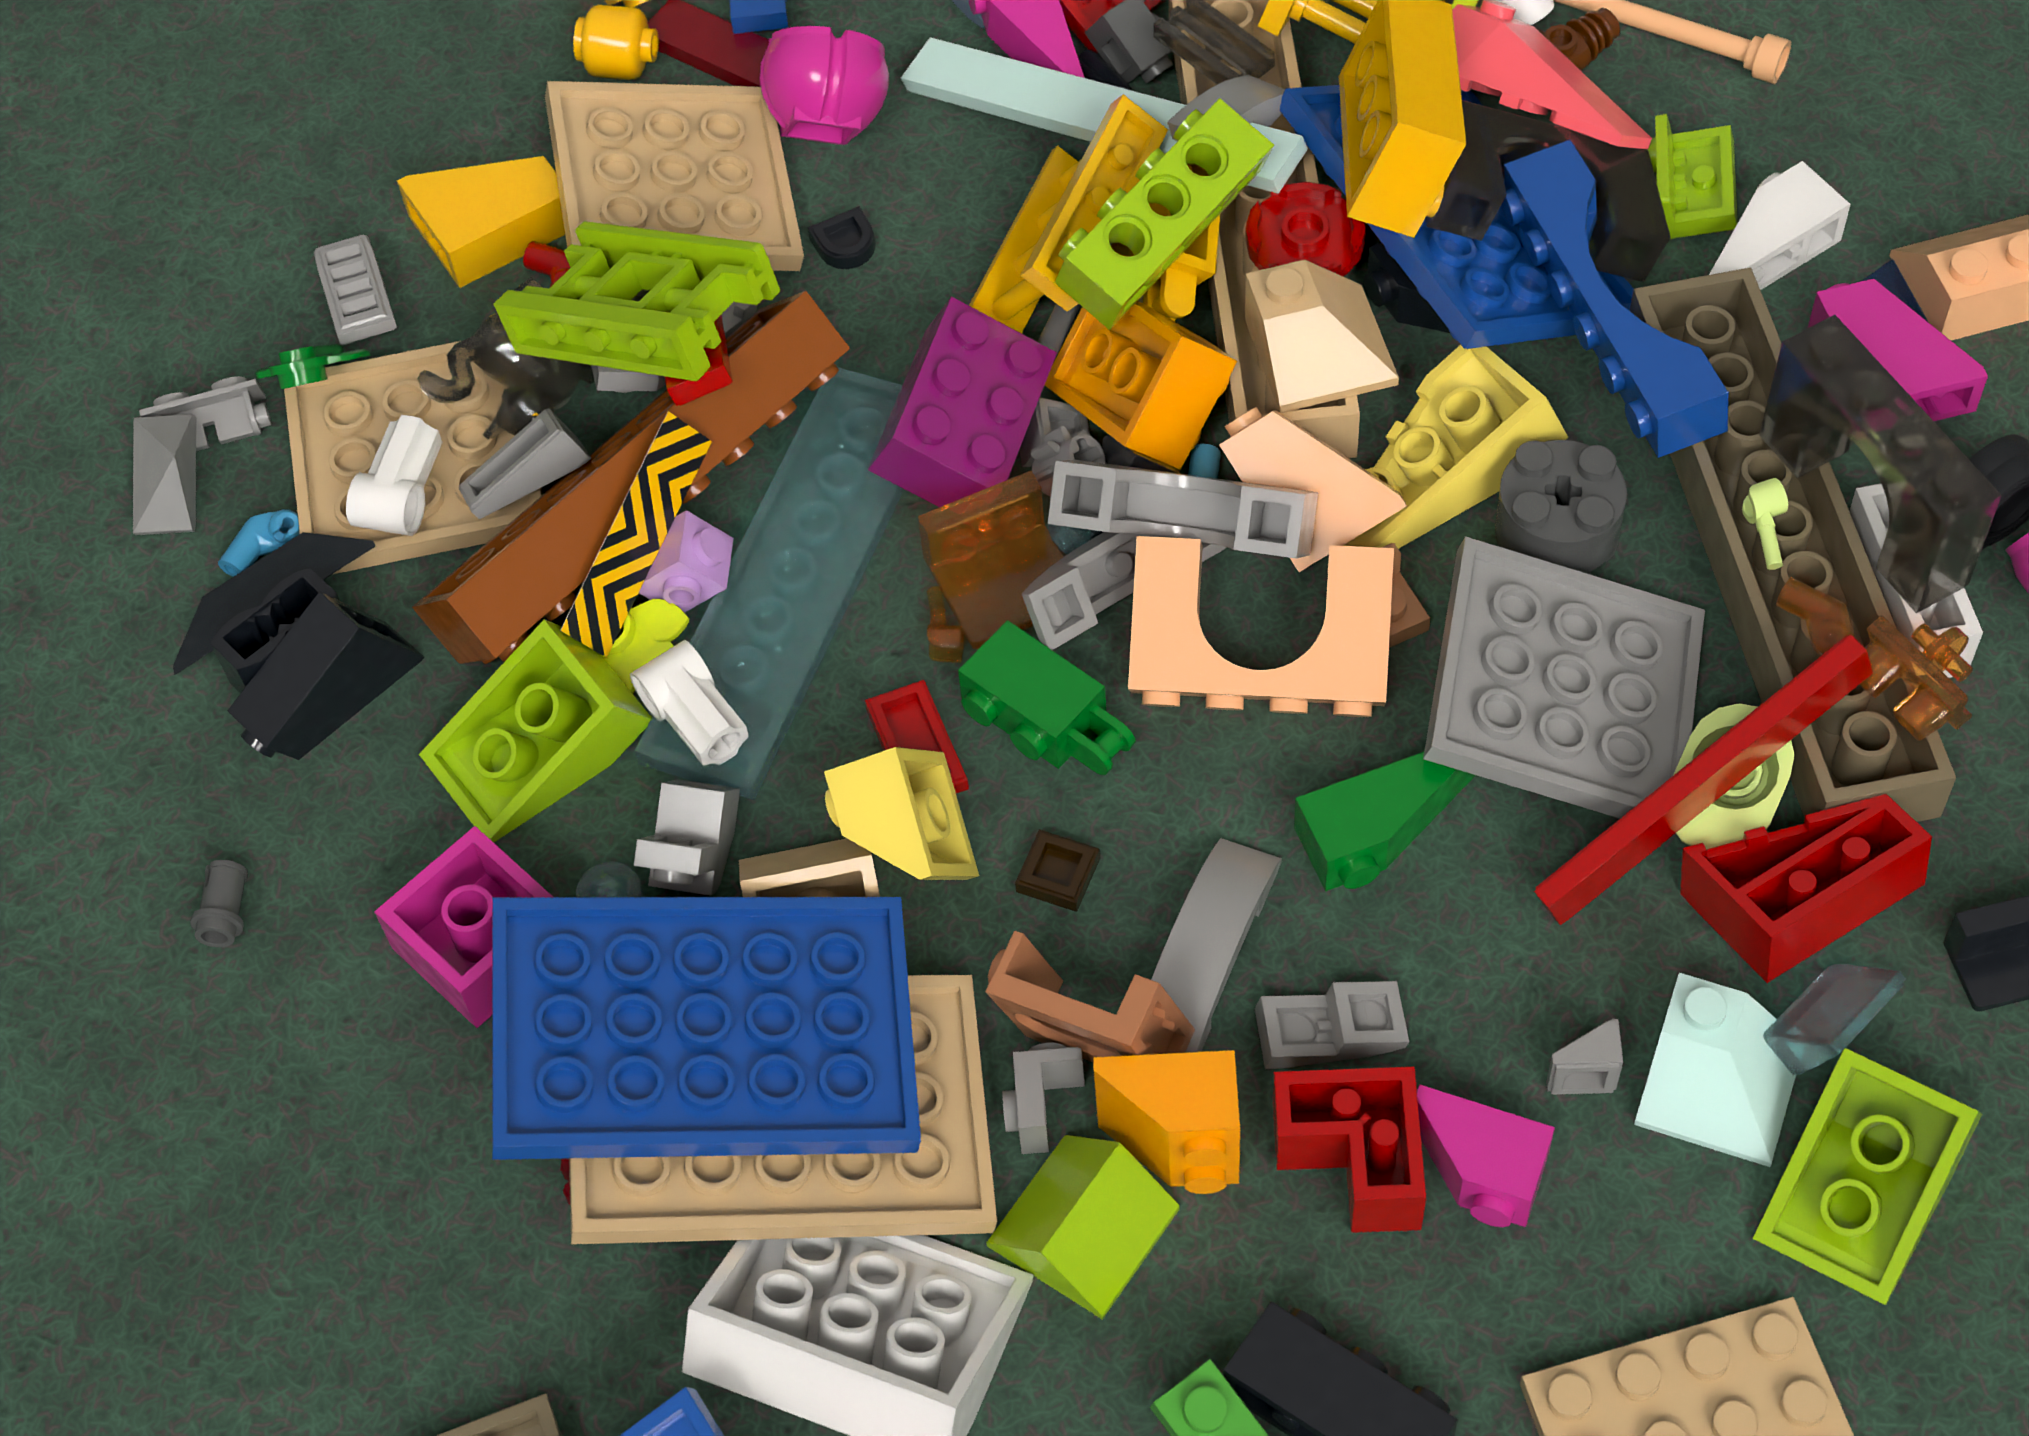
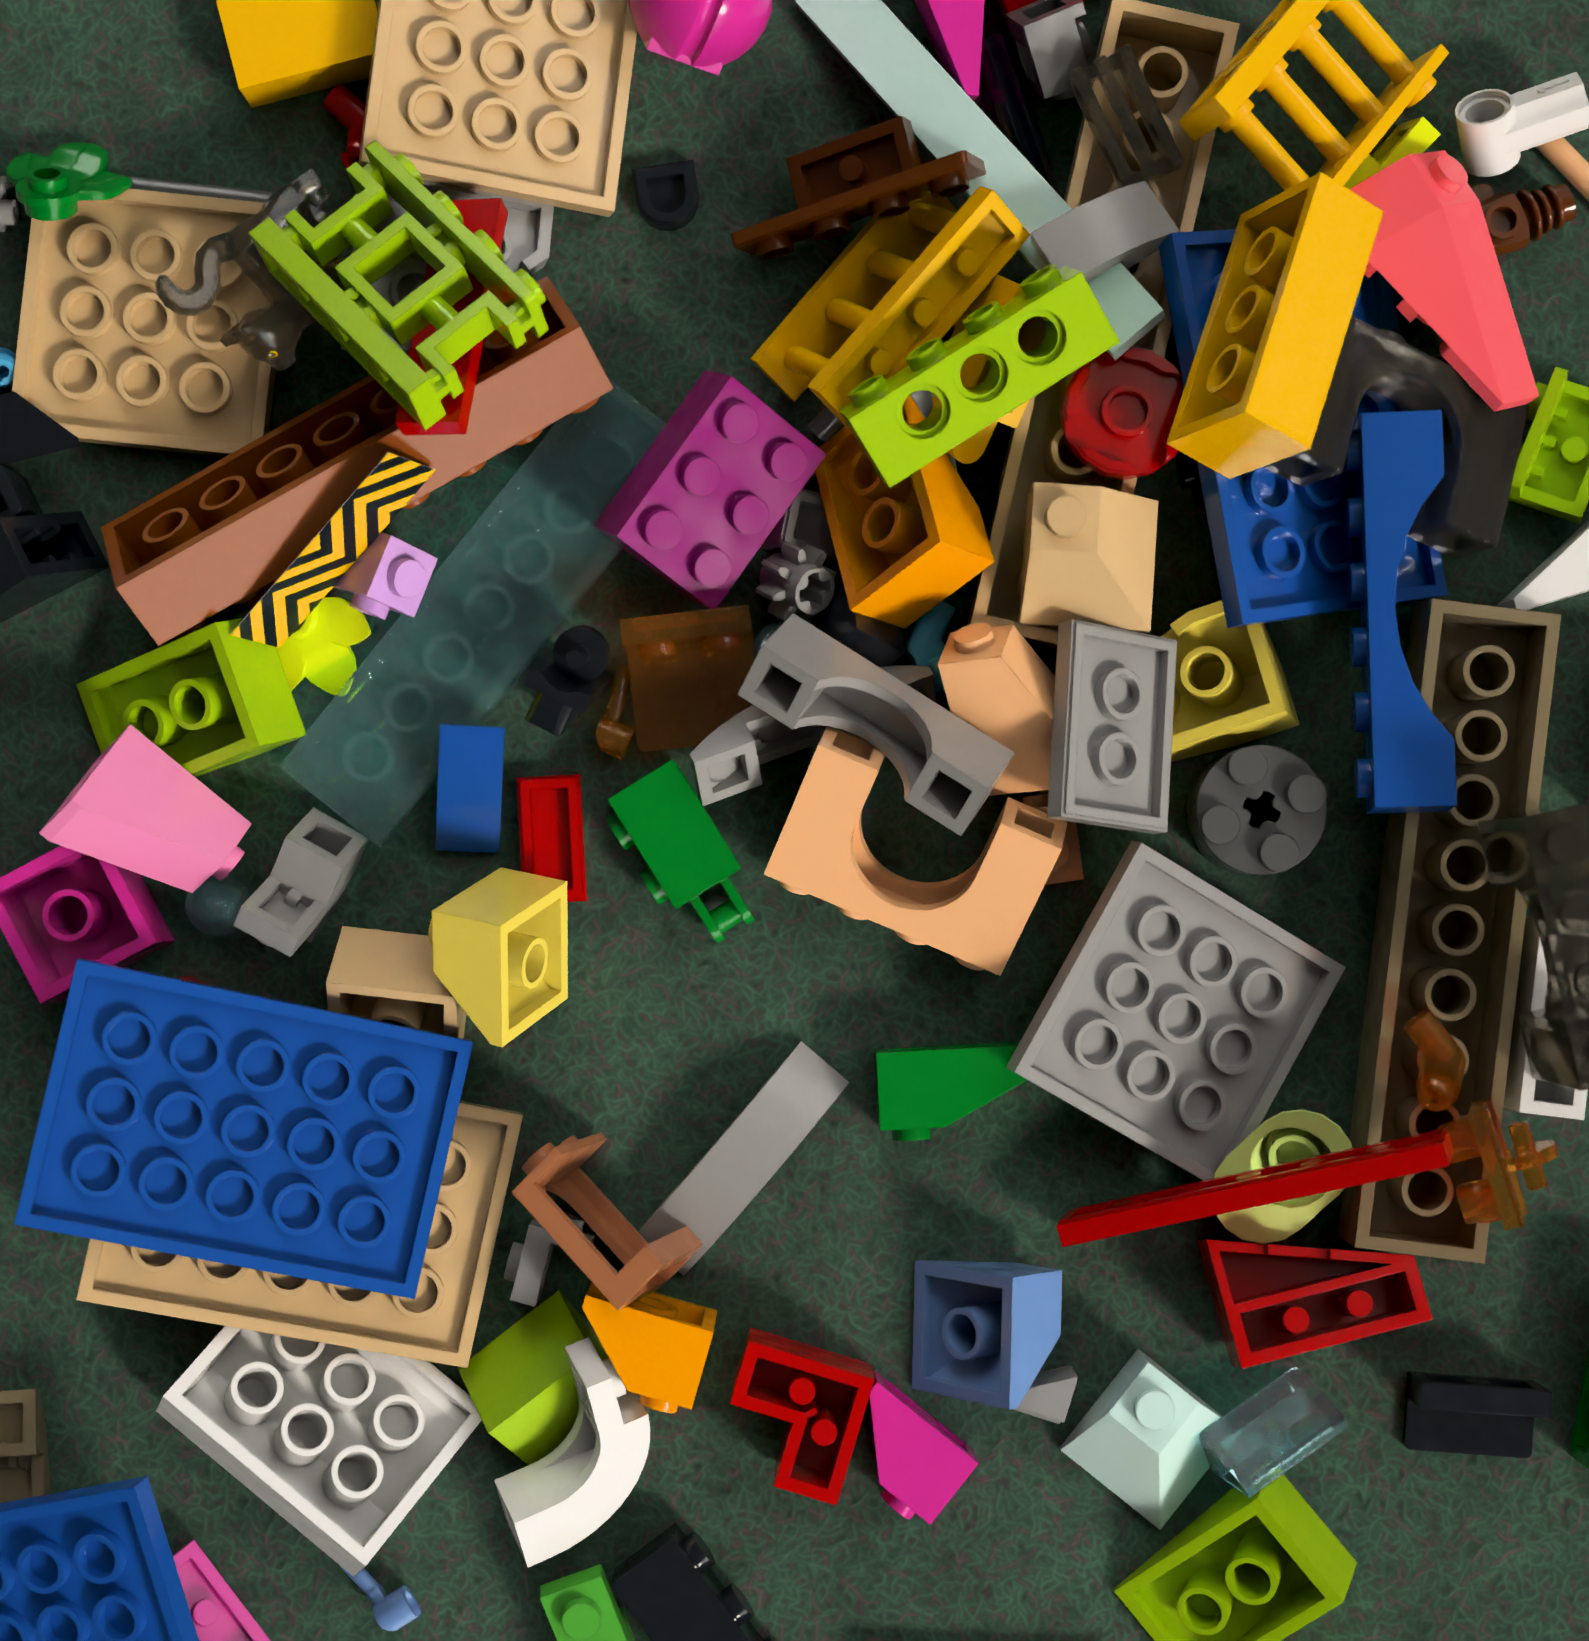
camera: 10 degrees right, 30 degrees up
(354, 285) = (135, 50): light grey slope -> none
(393, 489) = (109, 385): white piece -> none
(524, 464) = (286, 405): light grey slope -> none
(526, 808) = (149, 817): none -> bright pink slope
(683, 692) = (334, 730): white piece -> none
(822, 711) = (469, 788): none -> blue slope
(888, 589) = (569, 678): none -> black hips
(1005, 165) = (857, 178): none -> reddish brown bracket
(1057, 870) = (640, 1022): dark brown tile -> none
(1164, 1258) = (590, 1471): none -> white arch
(1342, 1025) = (830, 1268): light grey slope -> none
(1398, 457) = (1112, 727): none -> light grey tile
(1501, 1012) = (983, 1328): none -> medium blue slope
(1761, 504) = (1437, 914): yellowish green hand -> none

